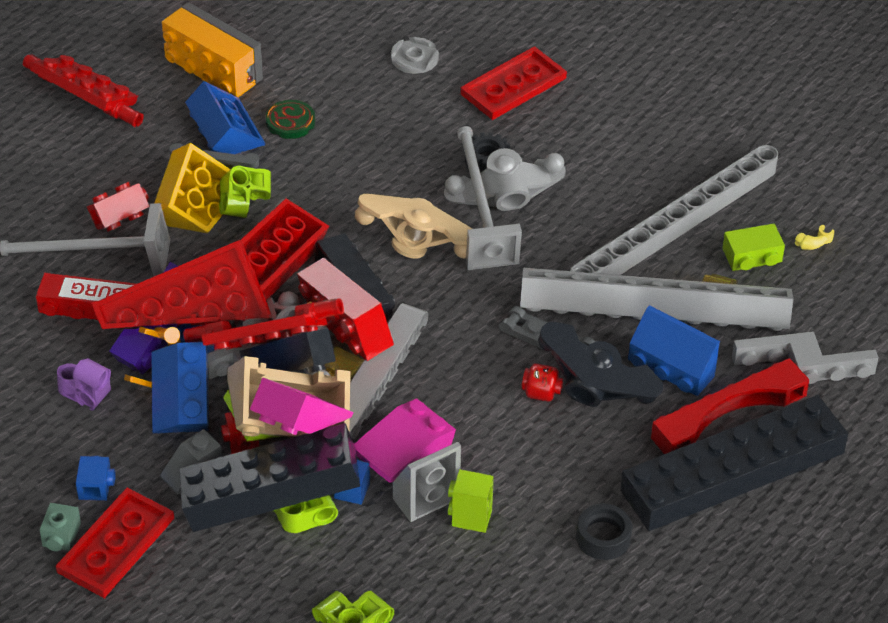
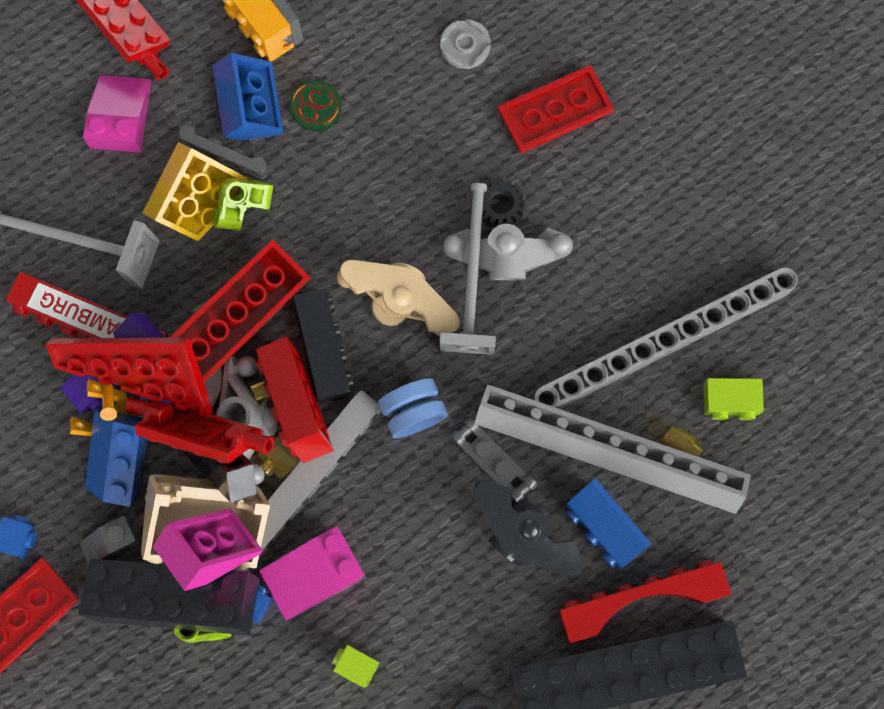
camera: 15 degrees right, 30 degrees up
(84, 382) = (31, 421): medium lavender piece -> none
(104, 156) = (117, 114): none -> dark pink slope
(110, 210) = (114, 194): brick -> none
(426, 482) = (319, 631): light grey slope -> none
(458, 300) = (412, 408): none -> medium blue wheel
(542, 382) = (469, 523): red head -> none
(806, 354) = (739, 556): light grey bracket -> none
(810, 242) = (796, 401): light yellow arm -> none

